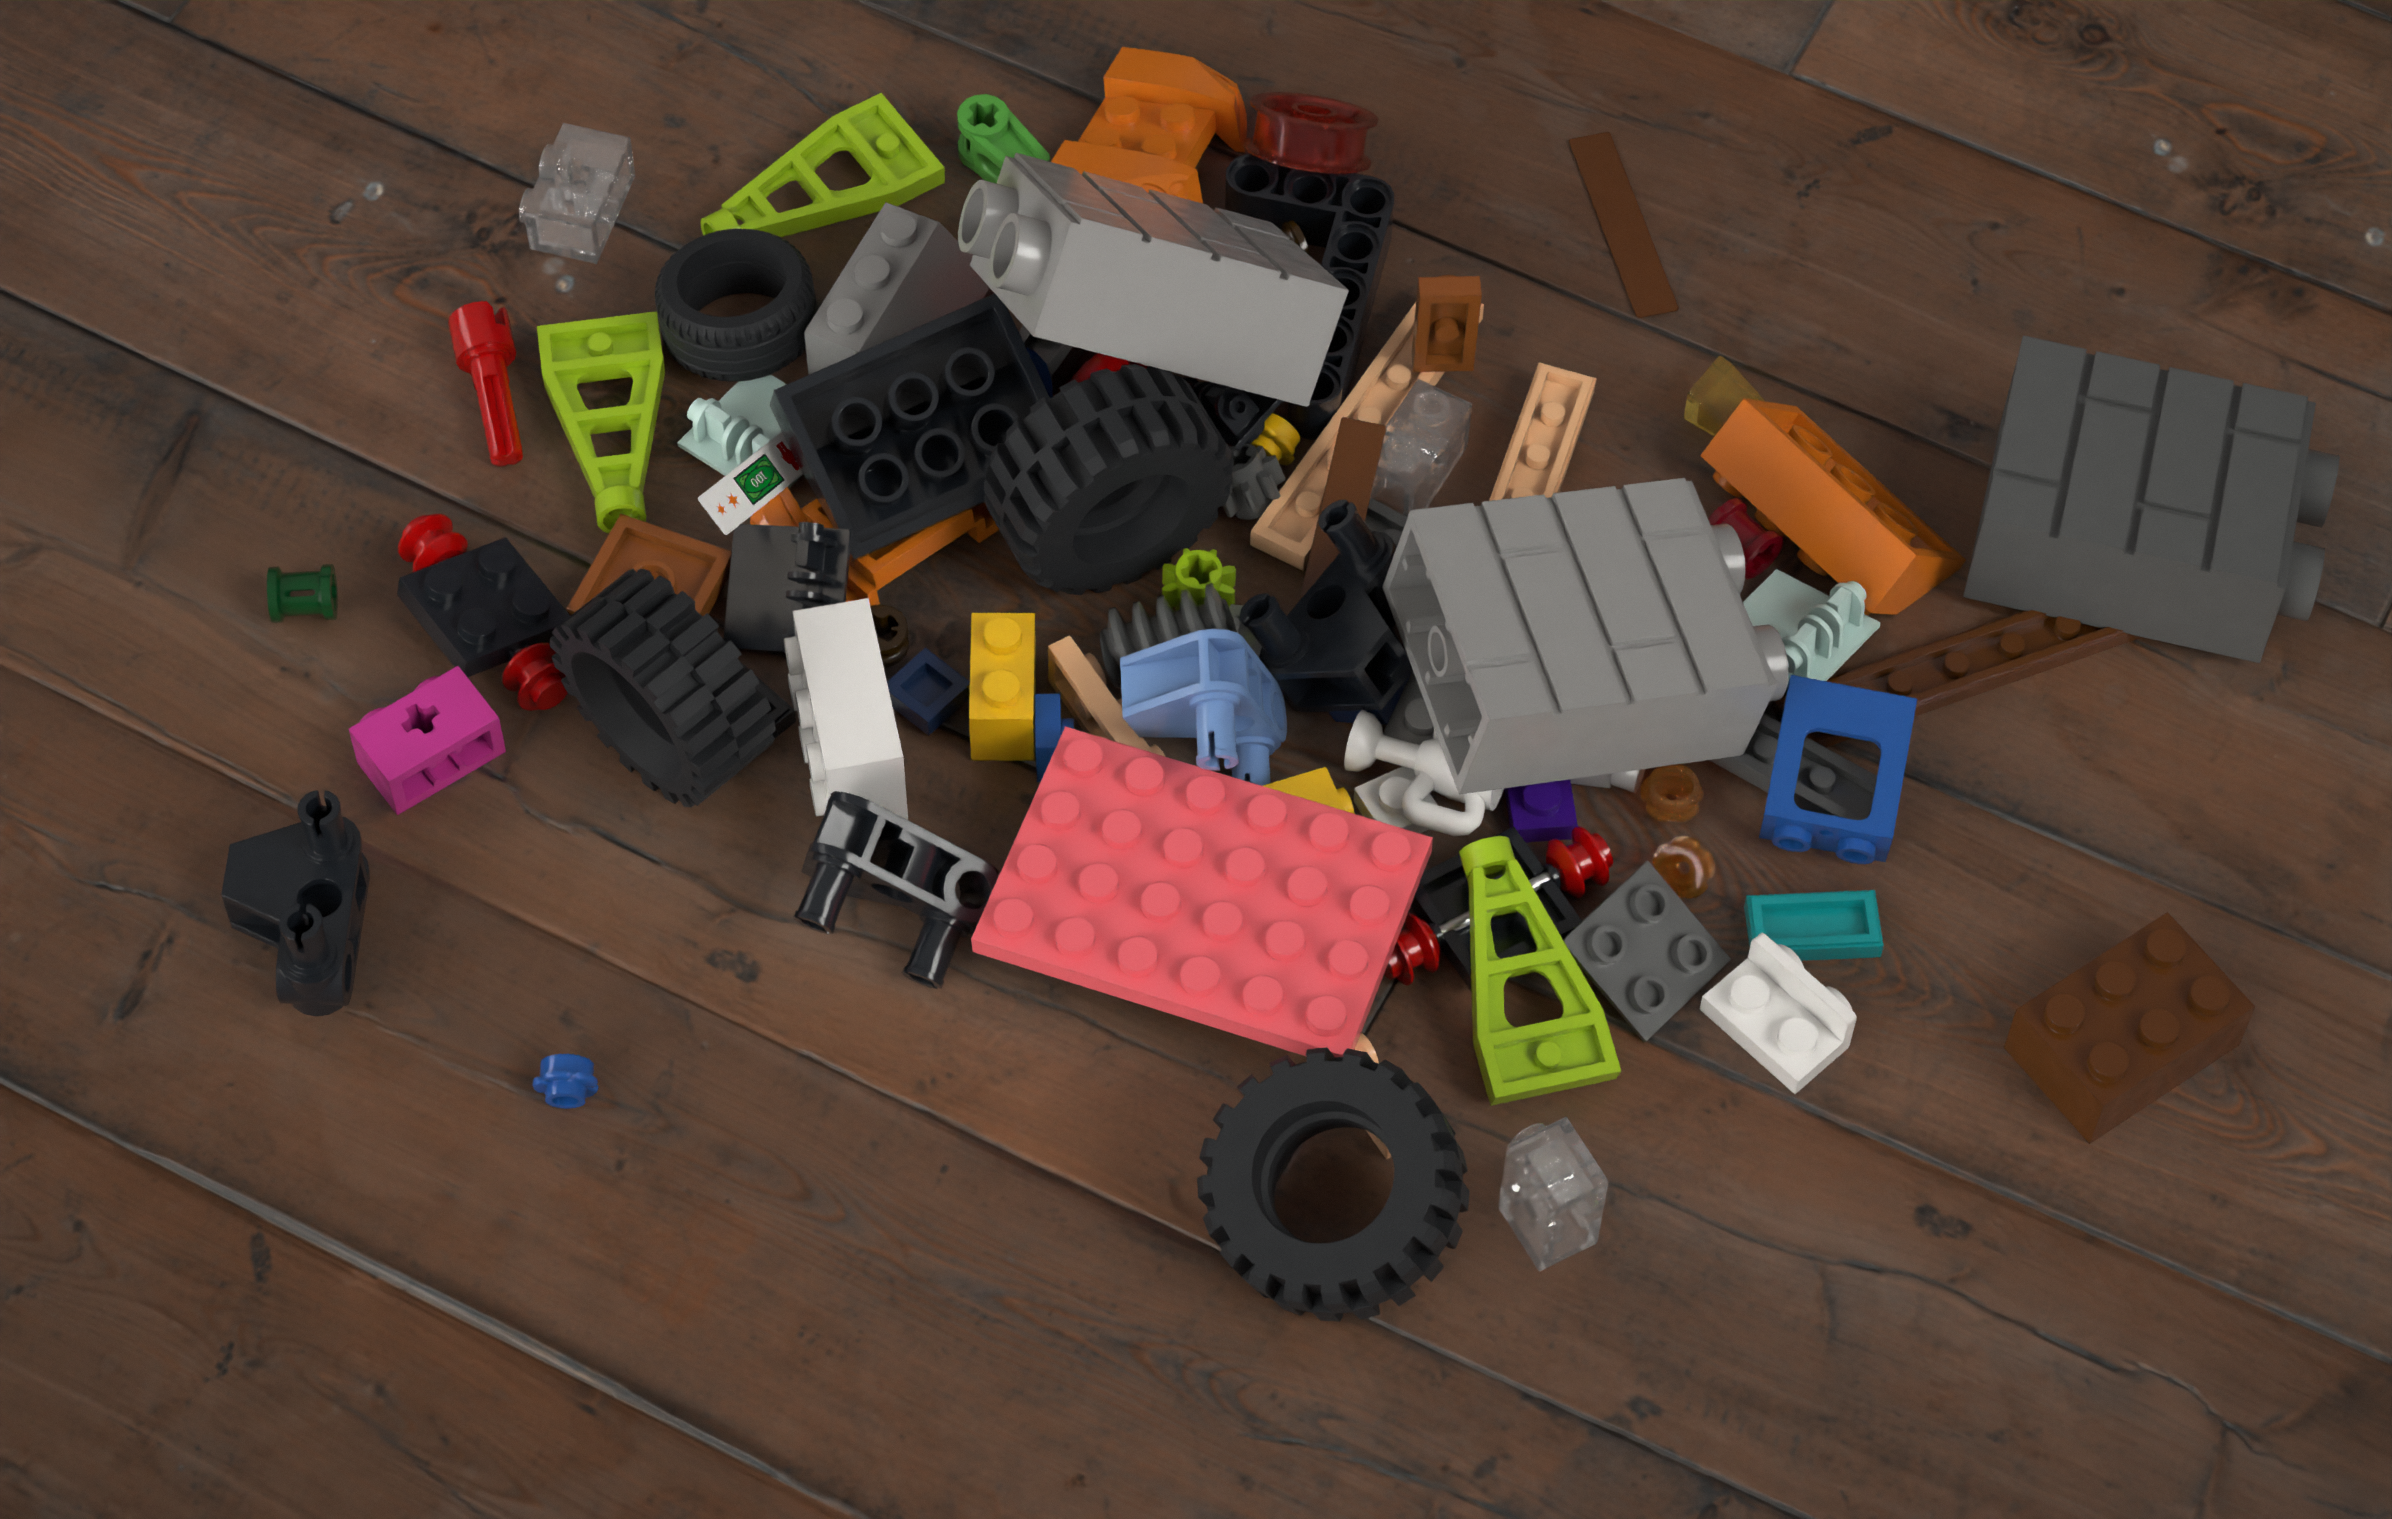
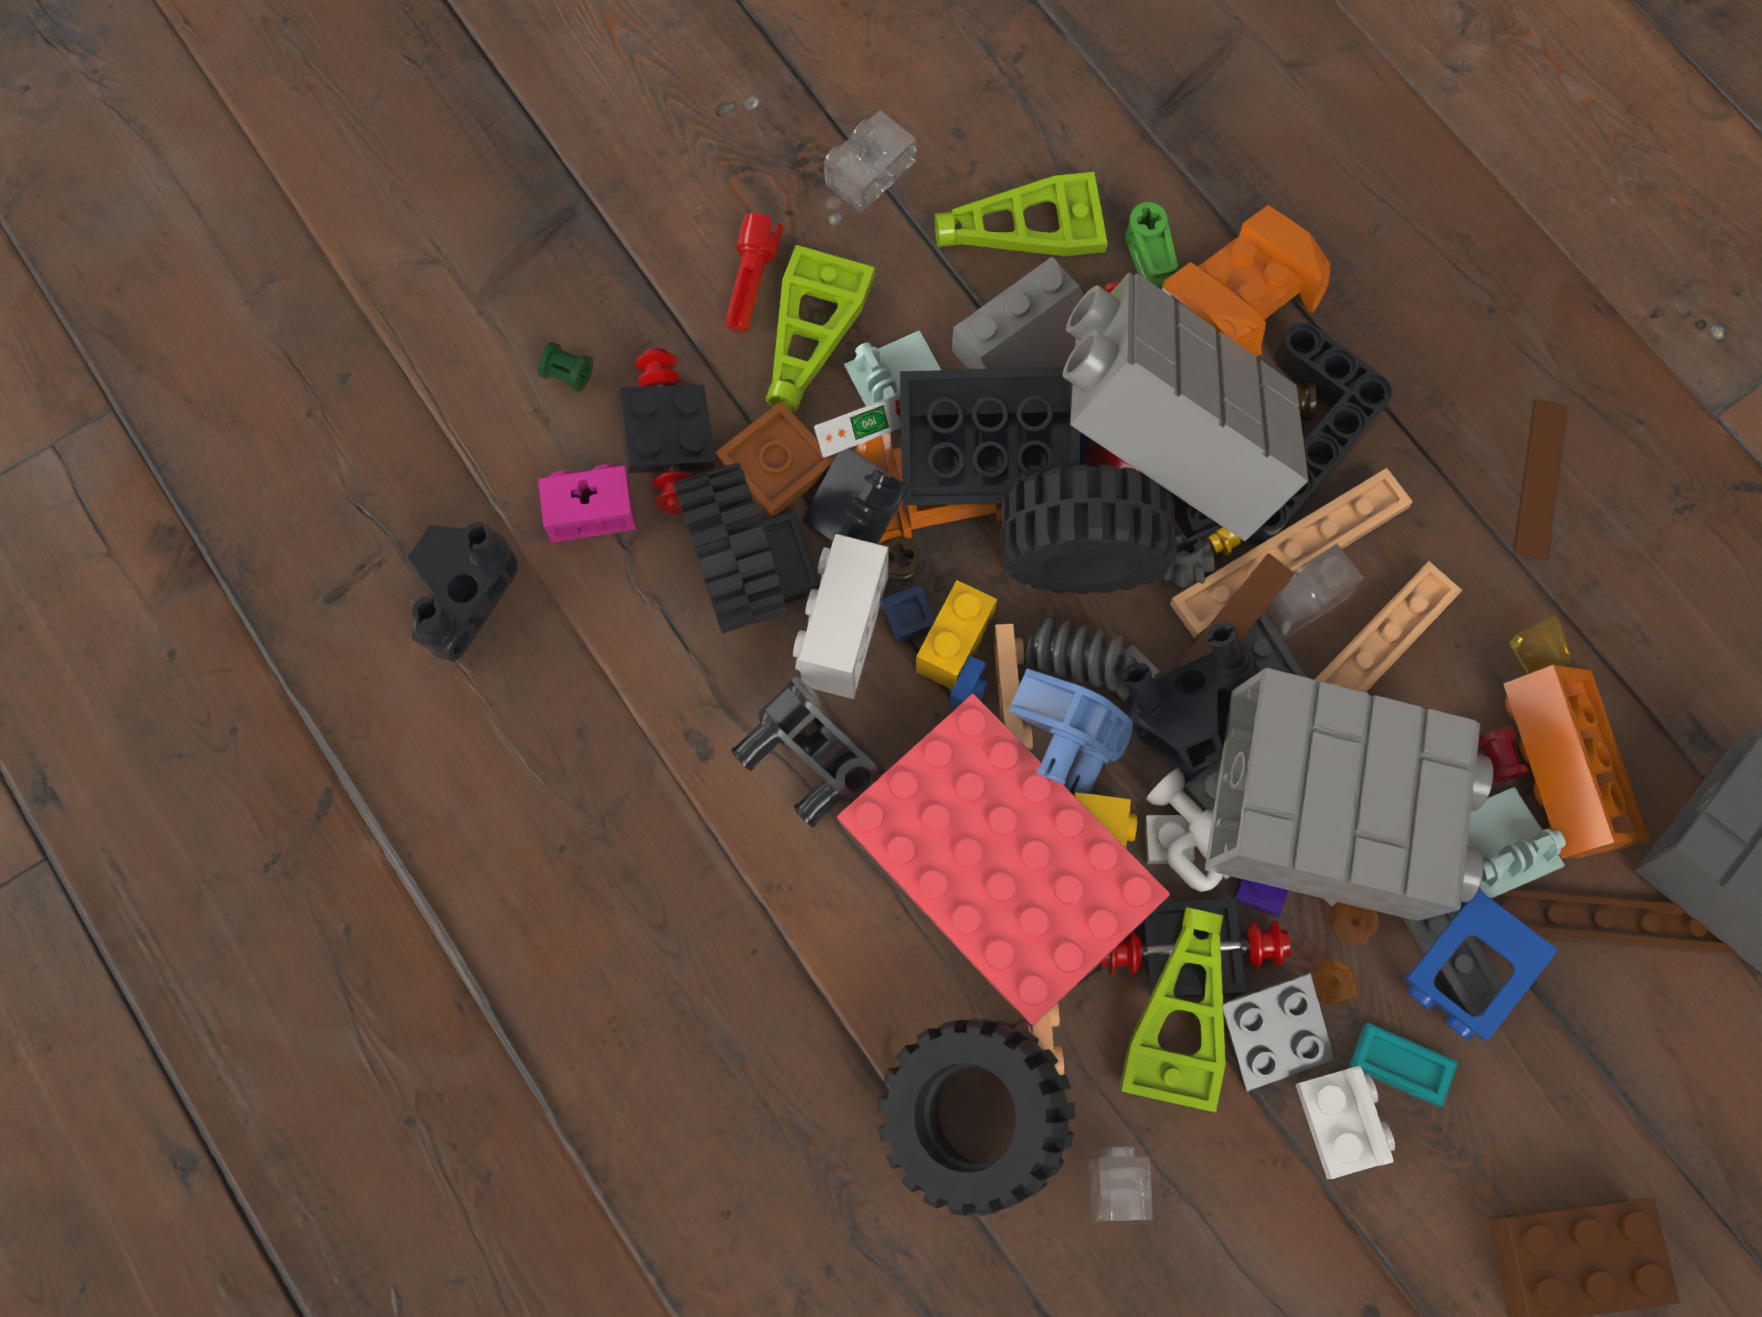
camera: 30 degrees right, 15 degrees up
(566, 1080) = (553, 780): blue plate -> none
(728, 265) = (923, 252): black tyre -> none
(1193, 573) = (1129, 618): lime gear -> none
(1310, 132) = (1358, 325): clear red wheel -> none
(1446, 323) = (1375, 514): dark orange plate -> none

